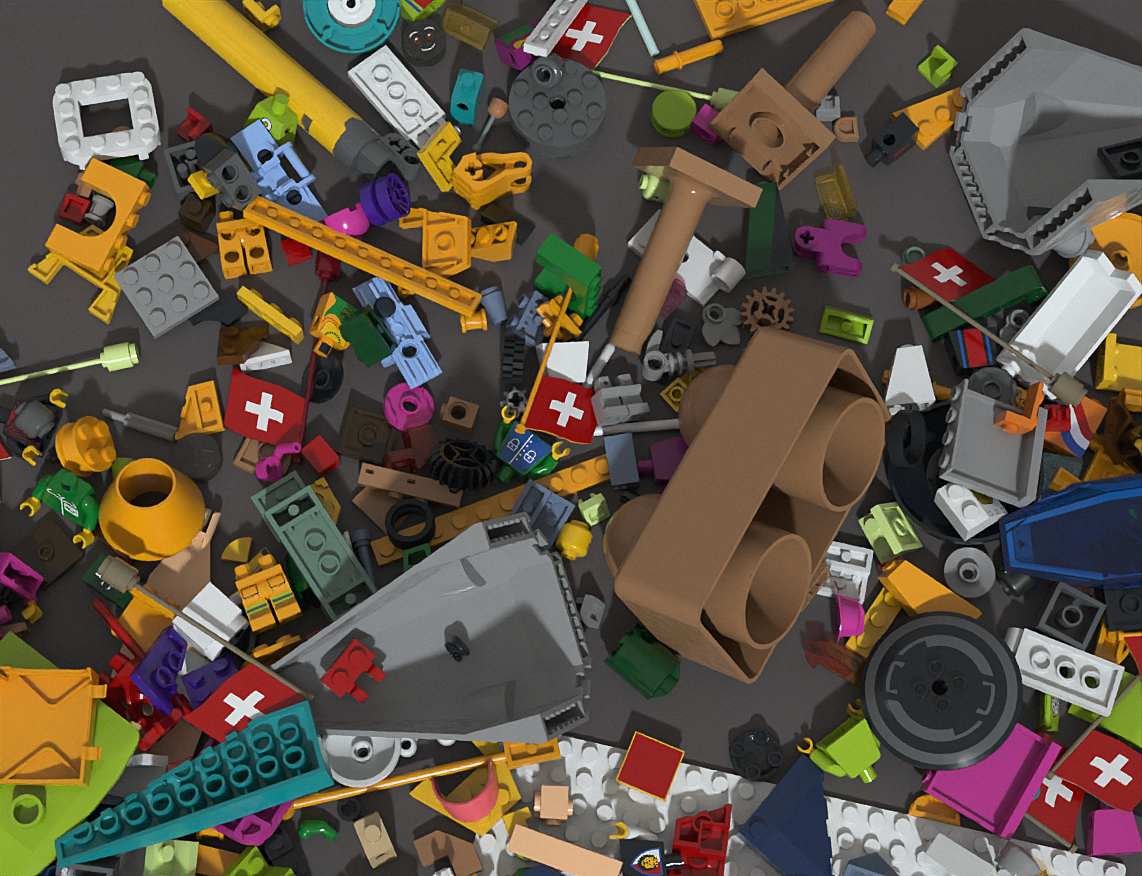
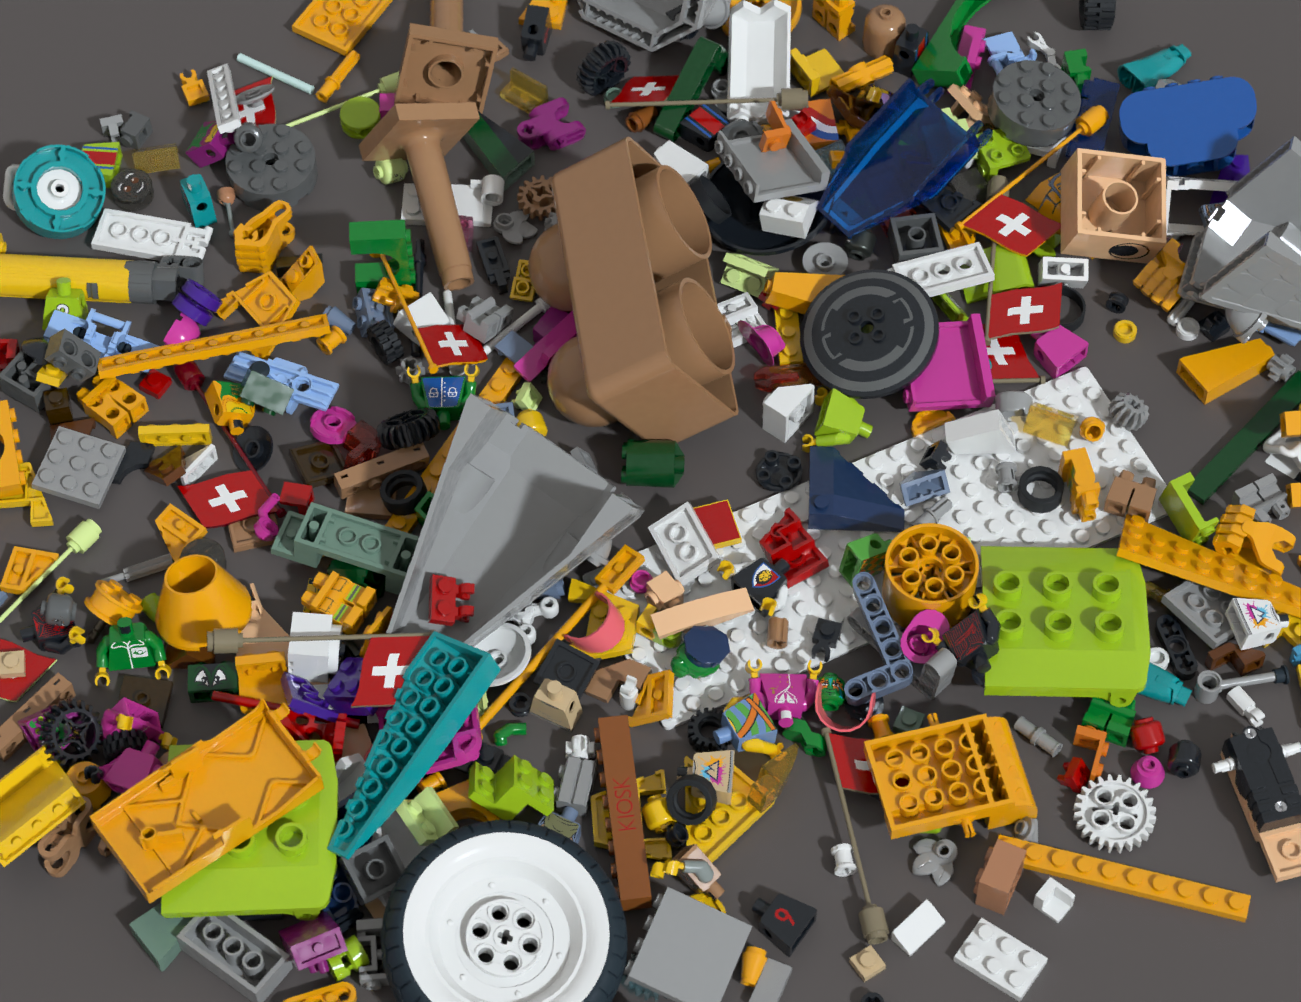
camera: 30 degrees left, 15 degrees down
(51, 350) = (25, 568): none -> light orange wing
(238, 550) = (288, 601): yellow tile -> none
(409, 813) = (568, 667): none -> black plate
(436, 155) = (209, 249): yellow plate -> none
(457, 648) = (511, 535): black bush -> none
(464, 425) = (380, 397): medium nougat brick -> none
(544, 774) = (638, 581): none -> dark pink plate
(596, 24) = (255, 95): none -> light grey dish
(608, 769) = (684, 543): none -> white plate
(637, 480) = (542, 353): none -> dark pink bracket
(672, 363) = (491, 273): light grey piece -> none
(808, 703) = (787, 410): none -> white slope
(905, 855) = (933, 456): none -> black tile
(924, 223) = (603, 67): none -> black gear

